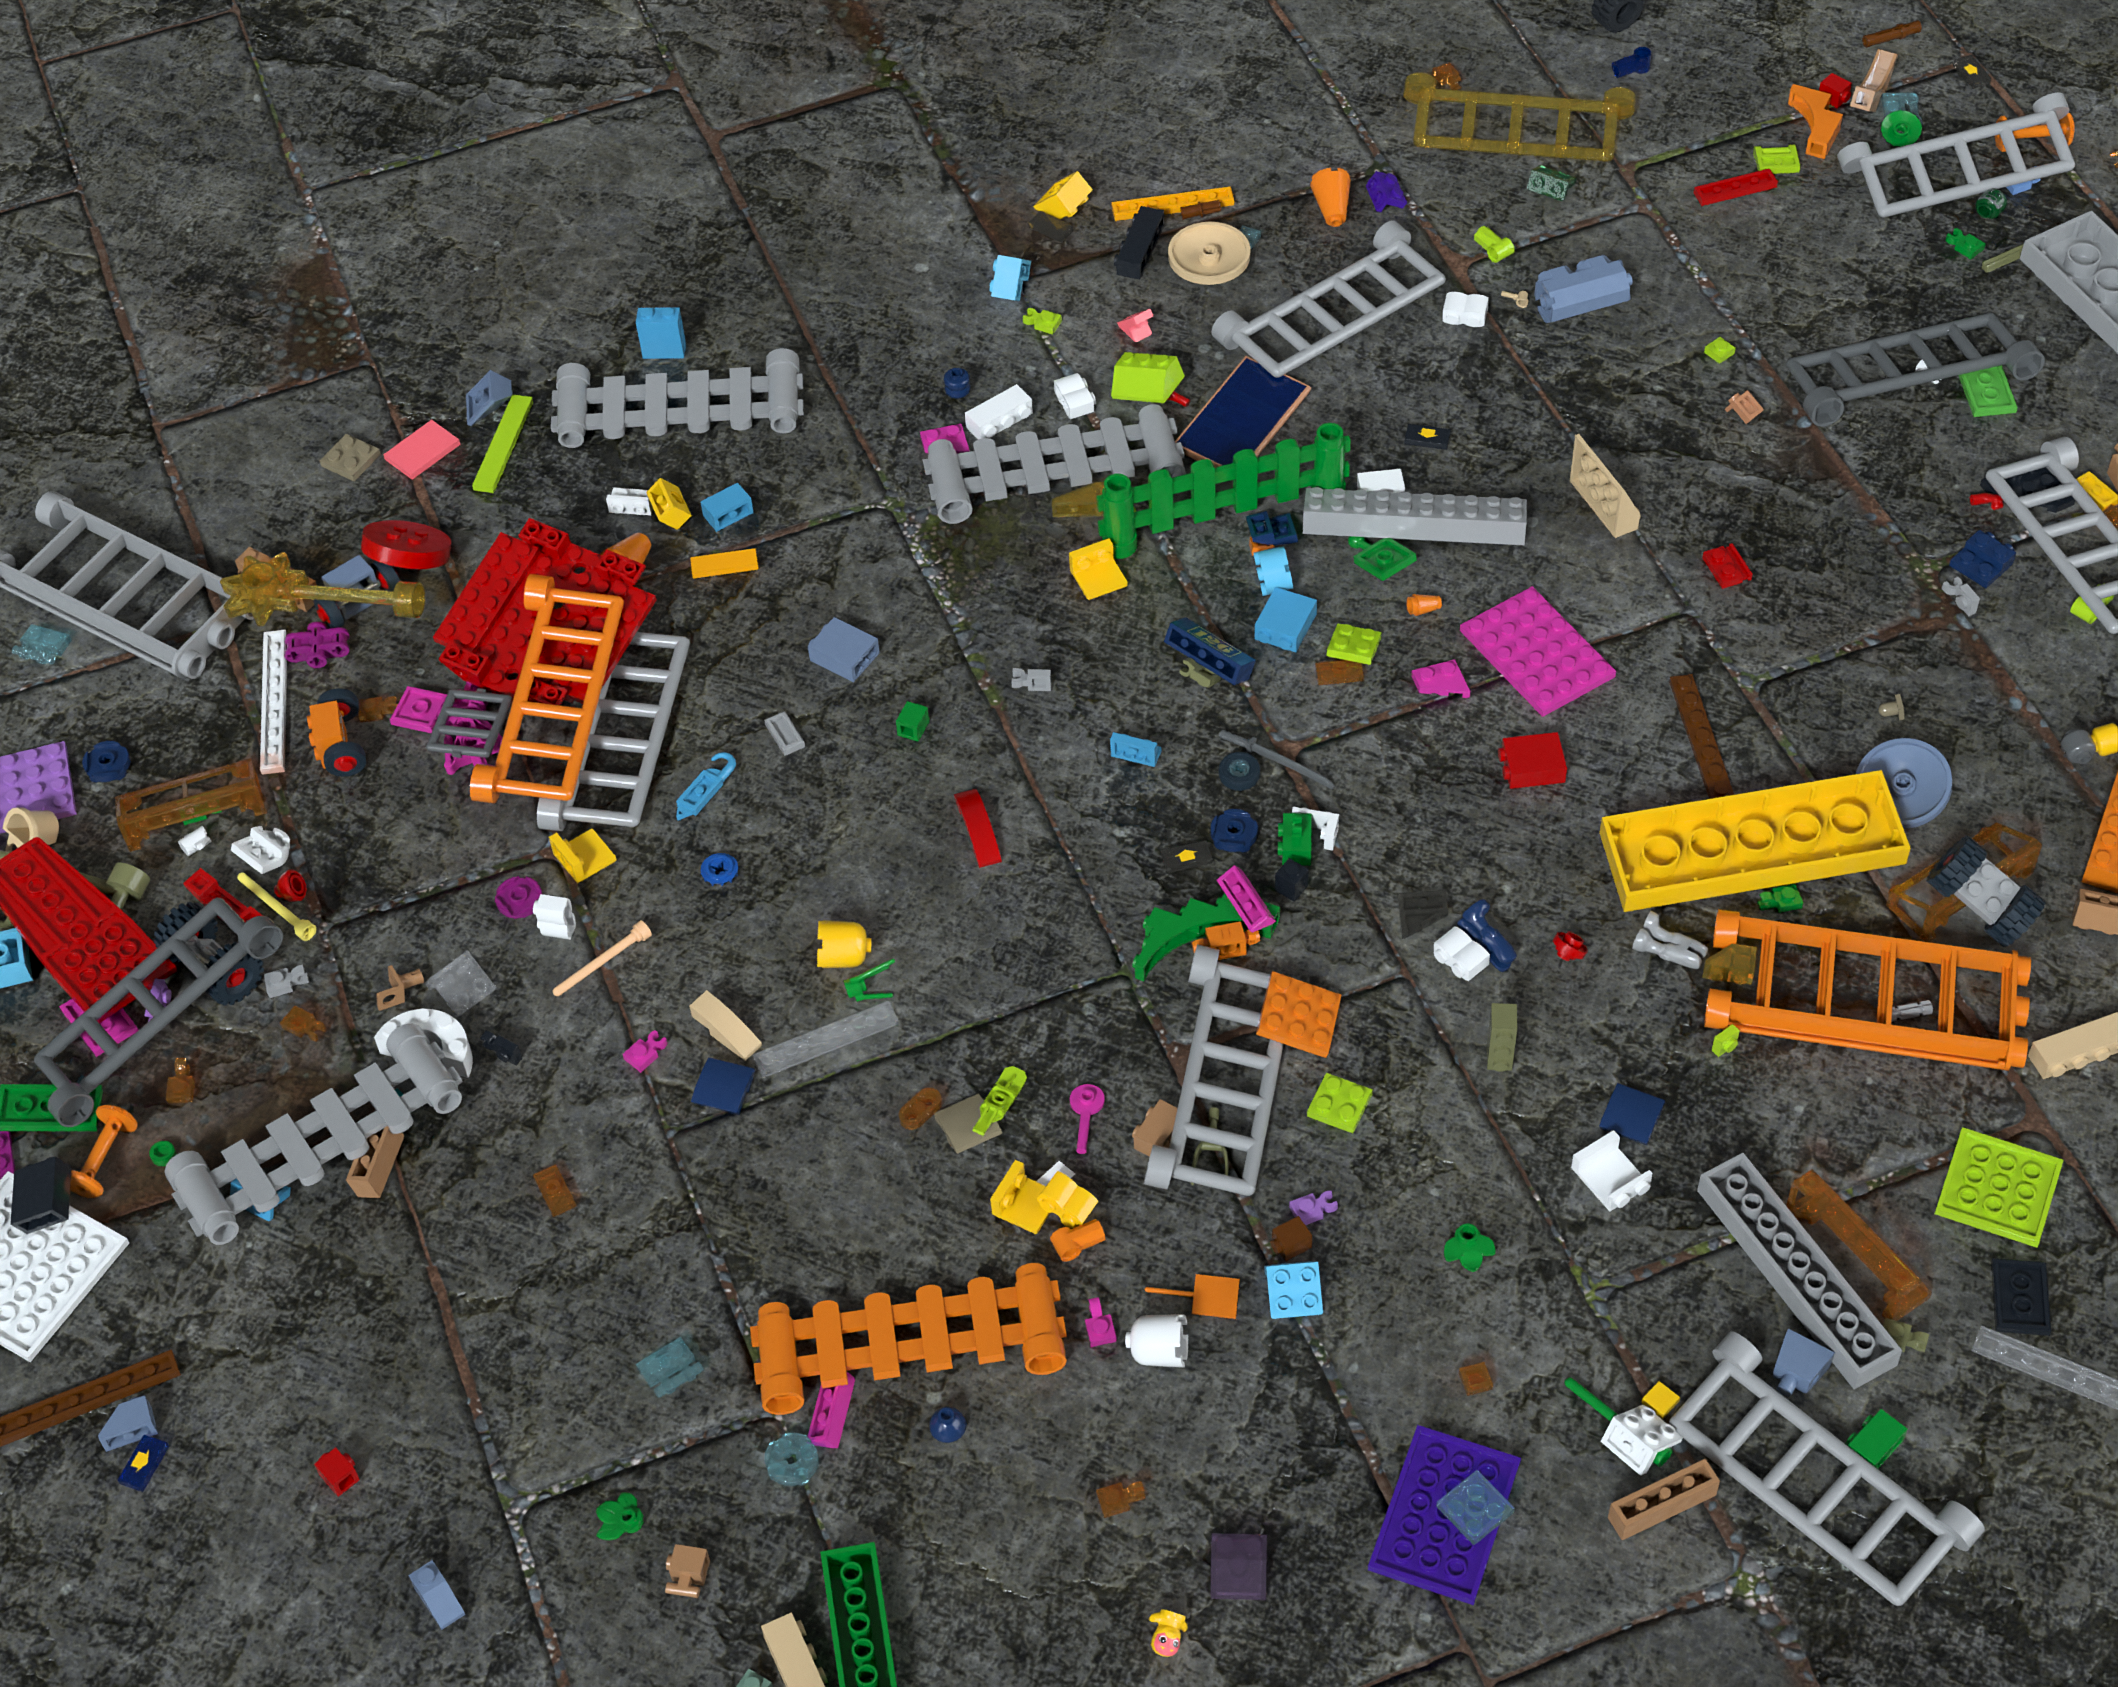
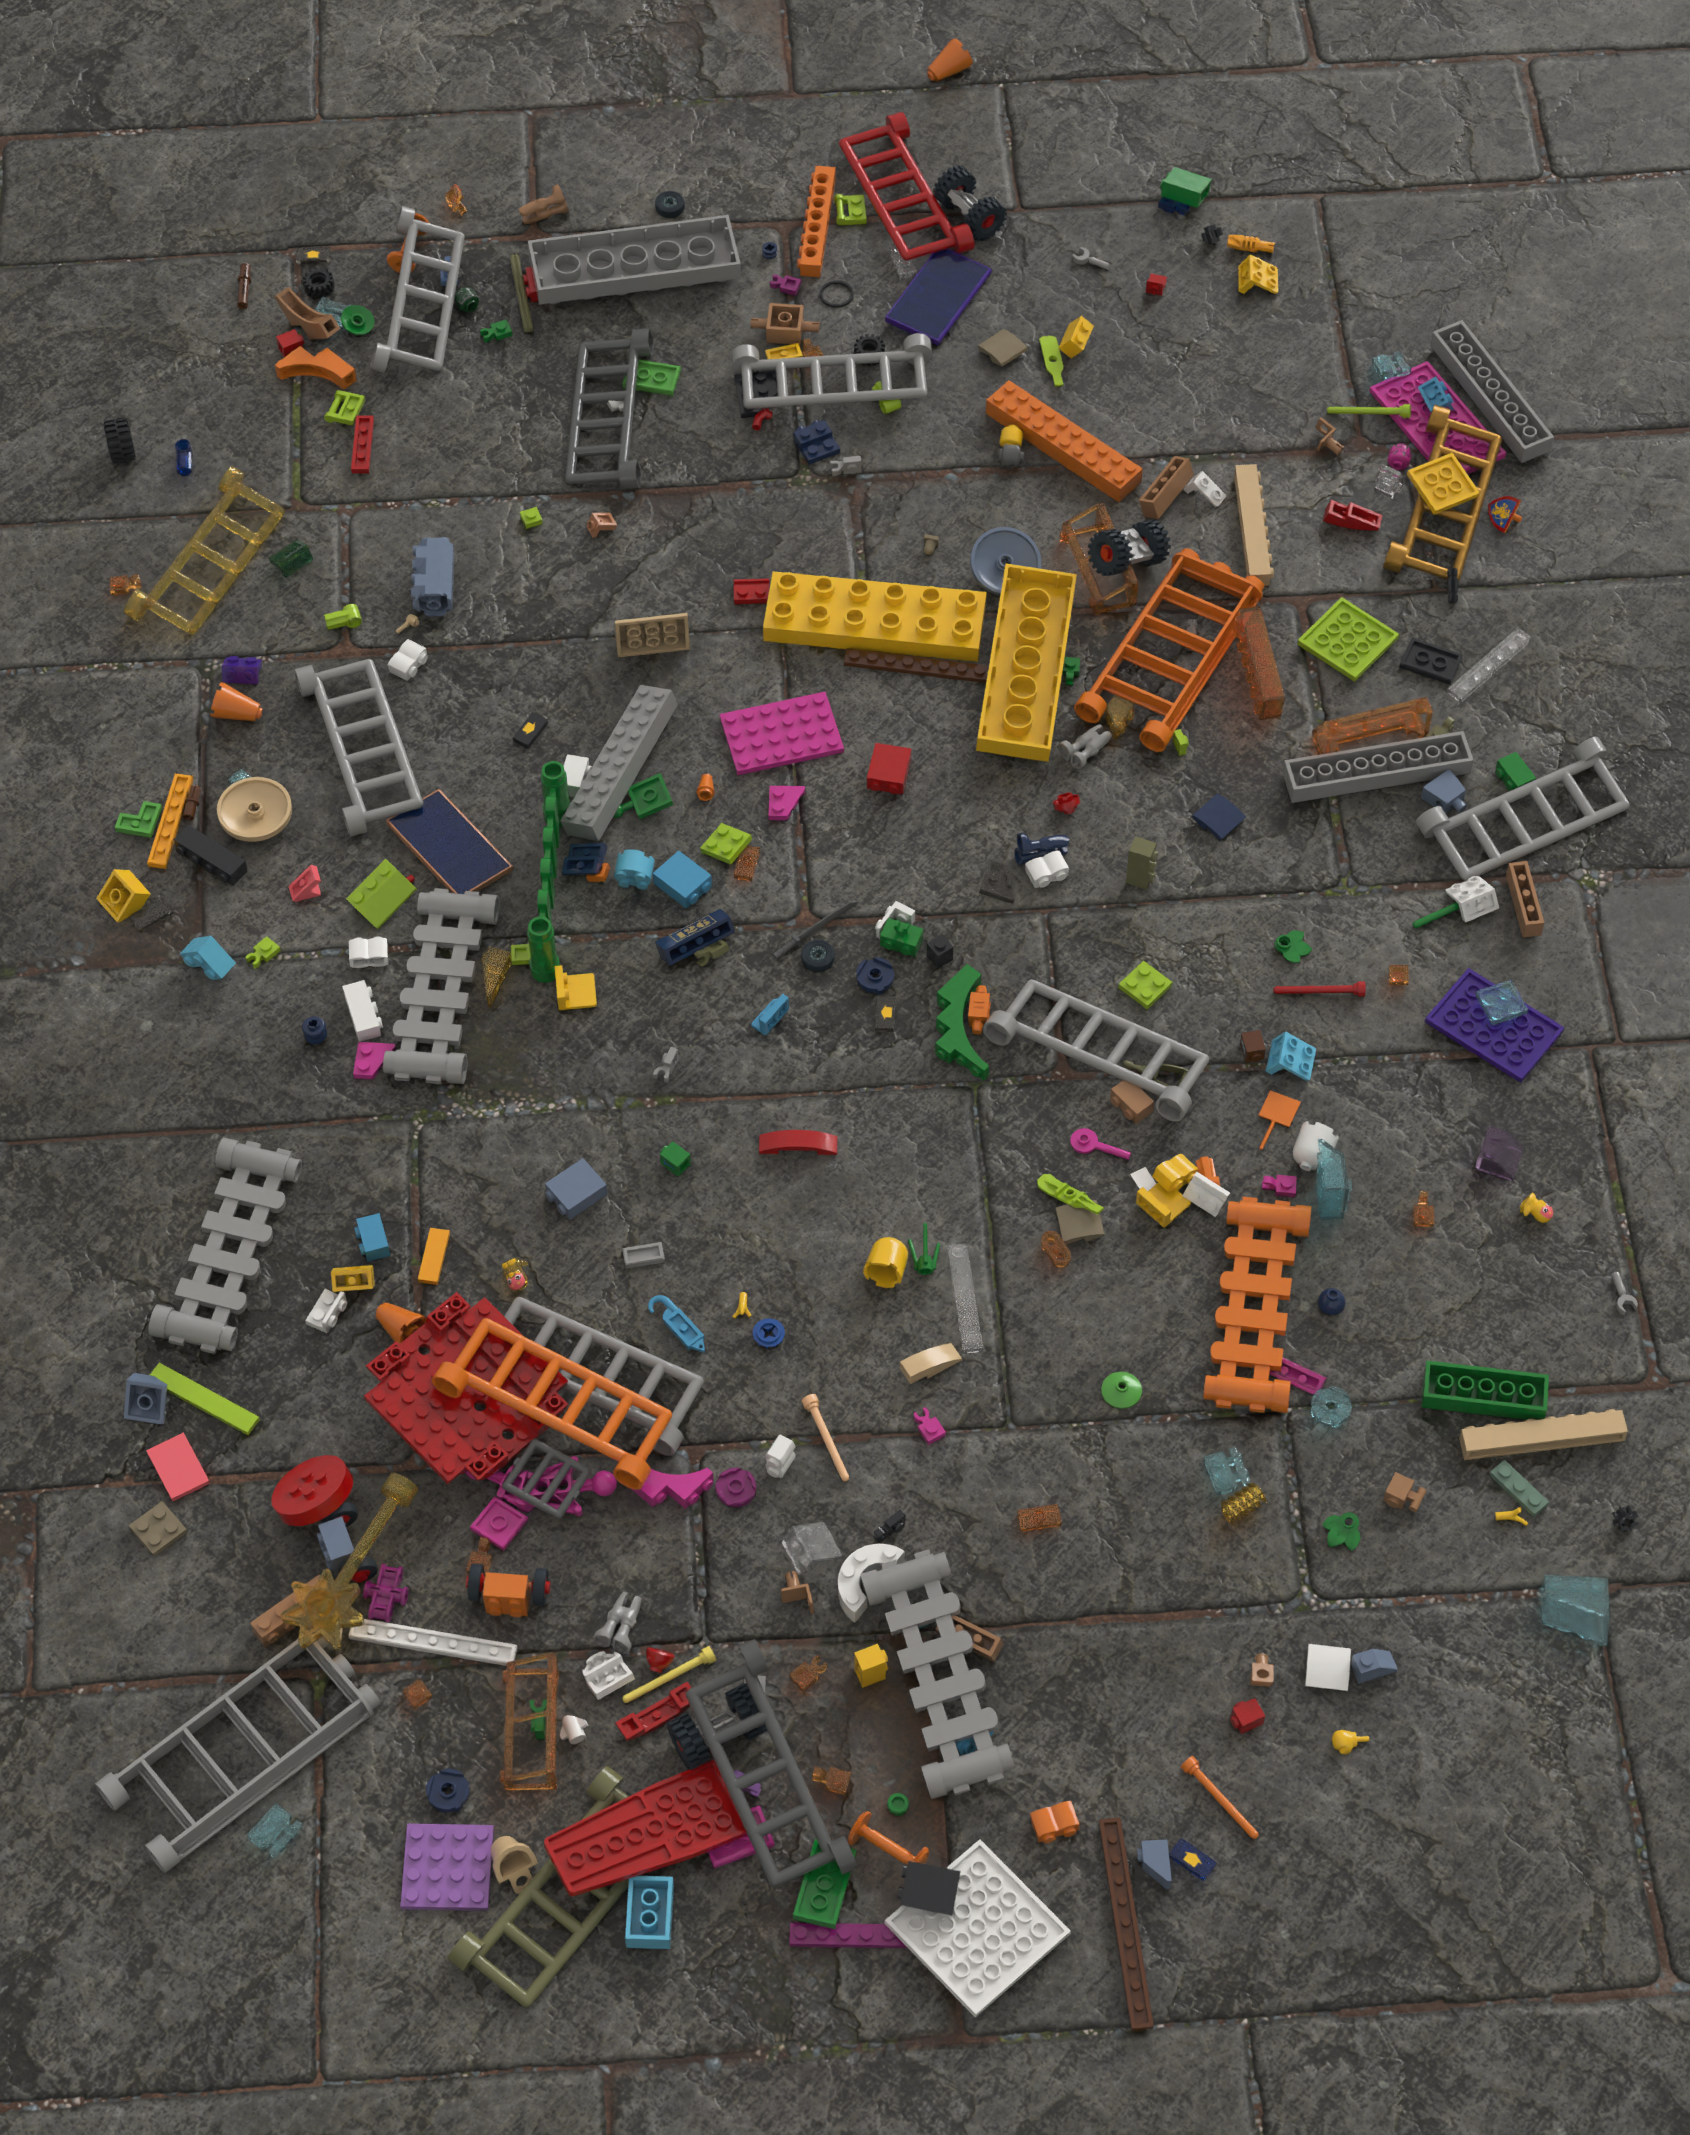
camera: 75 degrees left, 5 degrees up
(162, 1306) = (1054, 1822): none -> orange brick
(212, 706) = (417, 1693): none -> clear orange plate
(259, 1430) = (1191, 1767): none -> orange piece
(313, 1070) = (870, 1665): none -> yellow brick
(329, 1590) = (1346, 1740): none -> yellow piece
(334, 842) = (616, 1615): none -> light grey piece
(394, 1469) = (1262, 1671): none -> medium nougat bracket
(422, 1541) = (1328, 1667): none -> white slope
(495, 826) = (682, 1488): none -> dark pink arch
(582, 855) = (714, 1428): yellow bracket -> none
(621, 1391) = (1241, 1502): none -> clear yellow piece
(661, 333) = (143, 1235): dark azure brick -> none
(718, 631) = (514, 1274): none -> animal
(723, 1085) = (984, 1377): dark blue slope -> none
(747, 836) = (742, 1306): none -> yellow bar
(755, 1238) = (1119, 1397): none -> bright green dish
(1046, 1238) = (1206, 1194): none -> white plate
(1095, 1361) = (1331, 1182): none -> clear light blue wedge
(1158, 184) = (142, 824): none -> bright green plate
(1245, 899) = (954, 982): dark pink slope -> none
(1298, 1014) = (1064, 983): orange plate -> none
(1312, 1209) = (1228, 1029): medium lavender plate -> none
(1432, 1337) = (1357, 989): none -> red piece
(1610, 1172) = (1264, 845): white panel -> none
(1660, 1399) = (1445, 878): yellow tile -> none
(1748, 680) = (874, 616): none -> yellow plate
(1888, 1086) = (1259, 663): none -> clear orange brick
(1934, 85) = (318, 276): none -> black tyre

